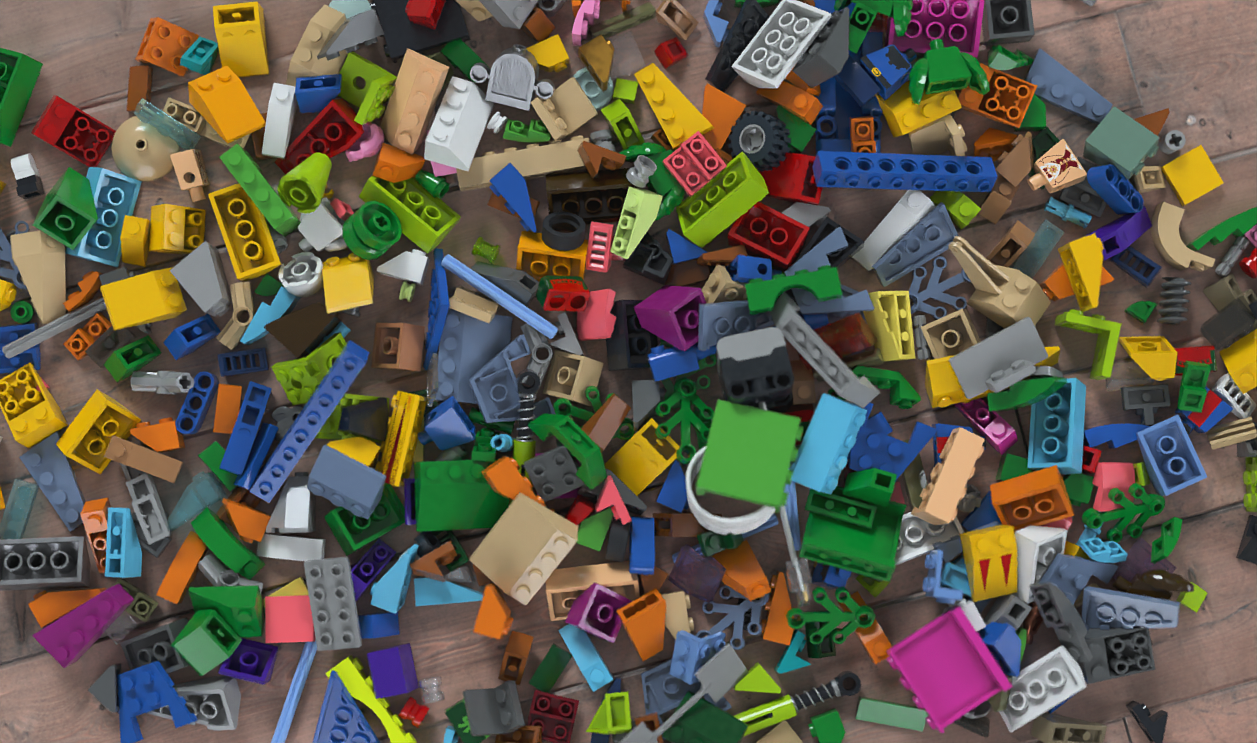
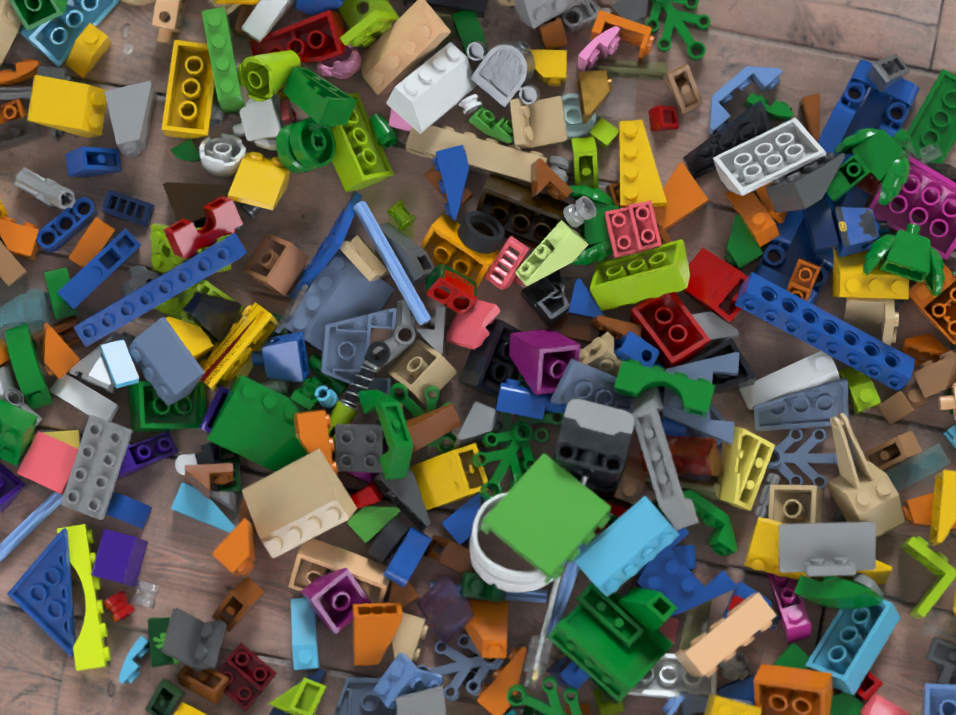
camera: 30 degrees right, 5 degrees down
(132, 358) = (29, 155): green slope -> none
(176, 229) = (129, 58): yellow slope -> none
(242, 301) = (154, 154): tan piece -> none
(257, 455) = (96, 299): blue tile -> none
(281, 306) = (189, 173): medium azure slope -> none
(307, 504) = (119, 363): none -> tile
(332, 335) = (221, 220): none -> red arch
(362, 183) = (318, 97): none -> green wedge
(392, 588) = (159, 480): medium azure slope -> none
(396, 165) = (368, 101): orange slope -> none
(407, 267) = (321, 195): white slope -> none
(407, 291) = (310, 217): yellowish green bush -> none
(550, 668) = (265, 630): dark green slope -> none
(610, 495) = (402, 495): coral slope -> none
(761, 139) = (706, 237): black wheel -> none
(1113, 434) = (905, 676): blue slope -> none

